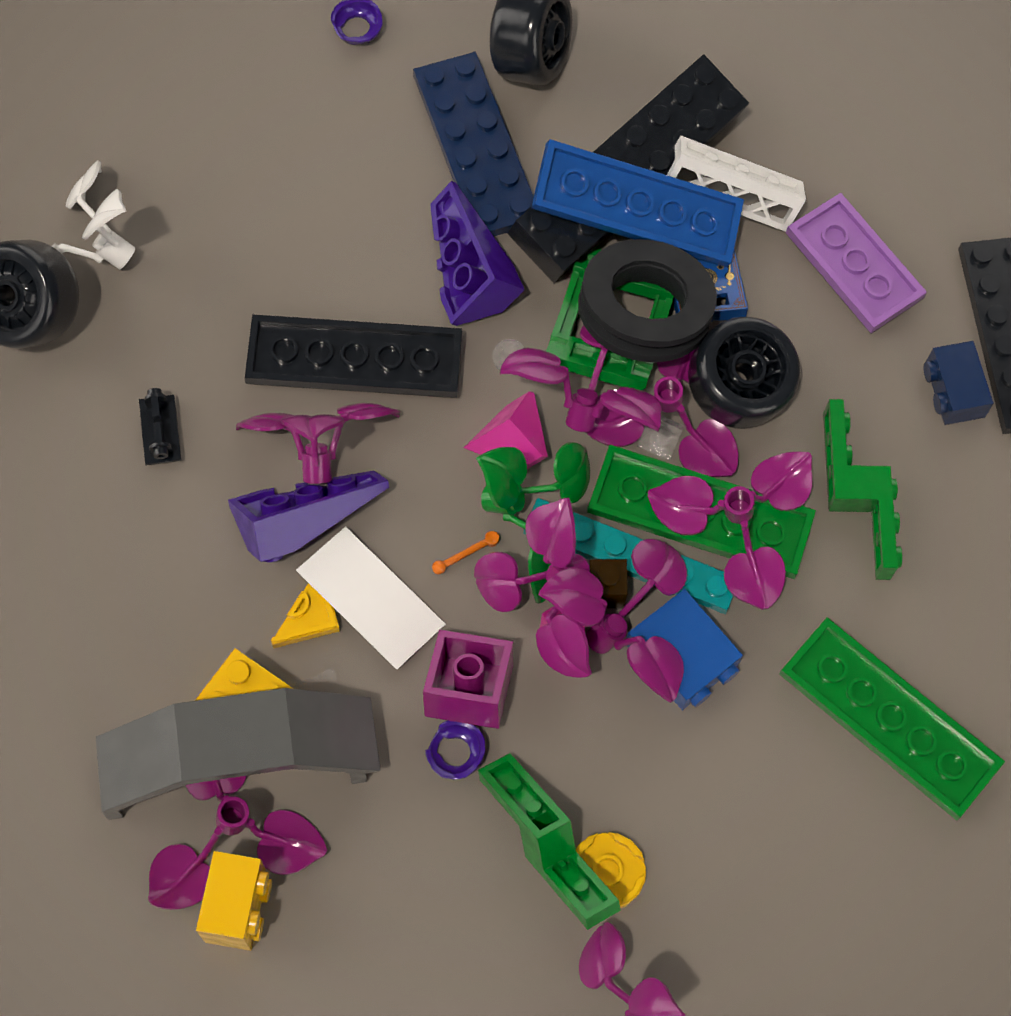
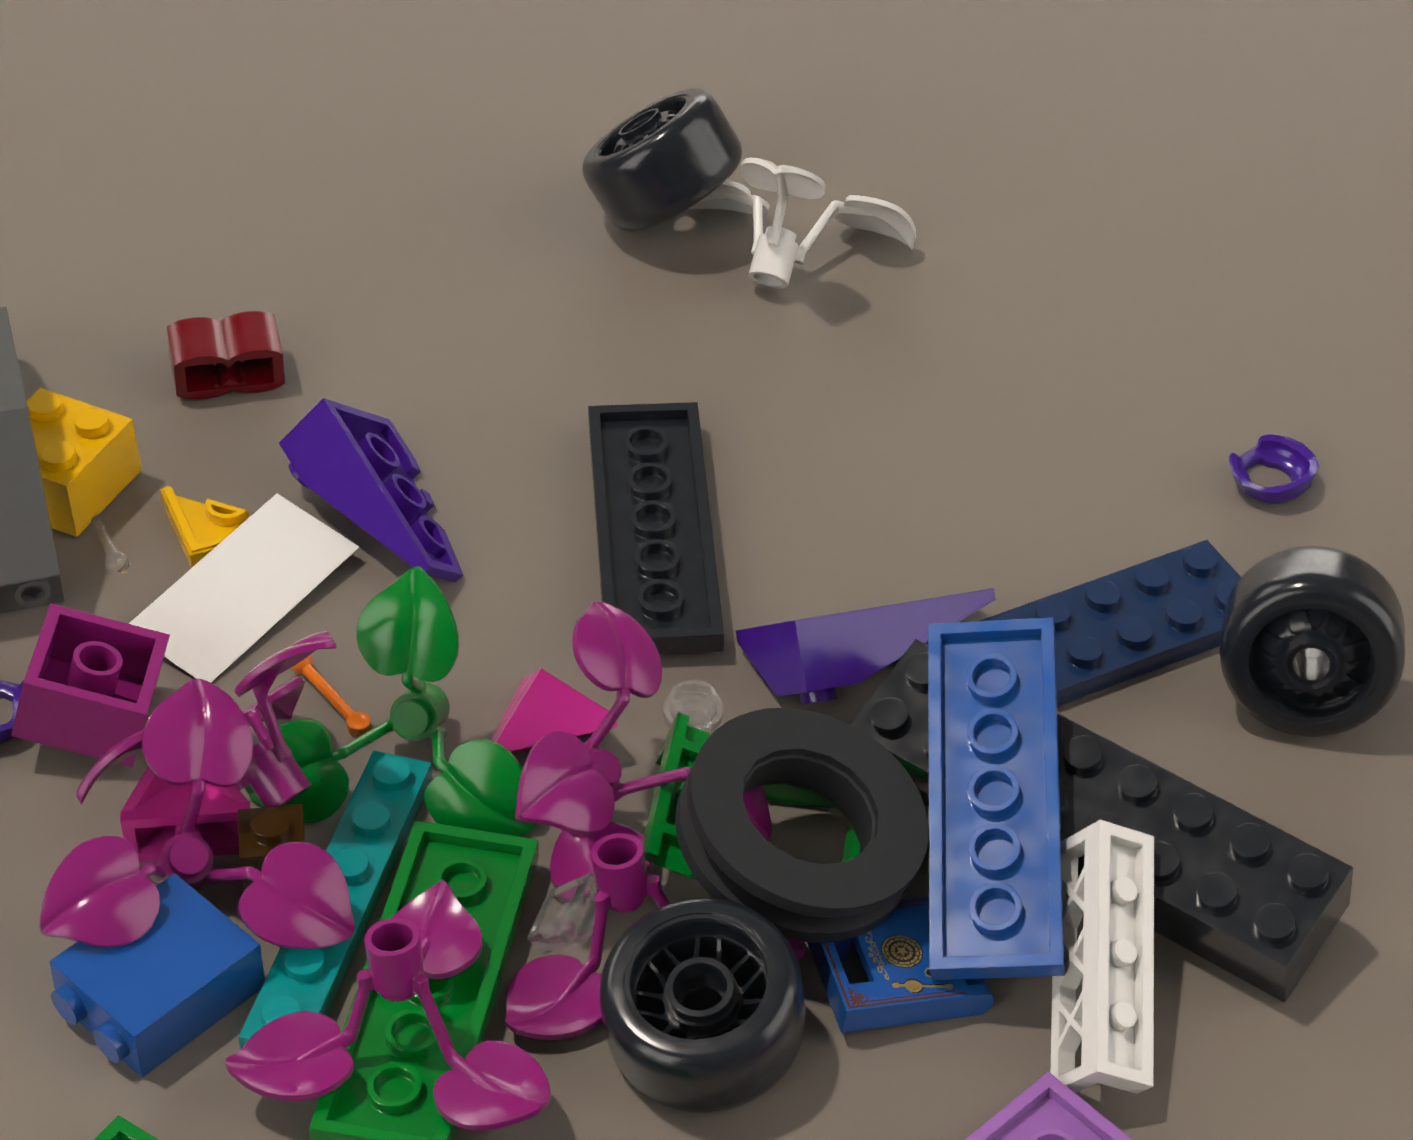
camera: 85 degrees right, 25 degrees down
(145, 598) = (225, 355): none -> dark red brick
(159, 428) = (475, 344): black hinge -> none
(316, 457) = (462, 490): magenta plant -> none

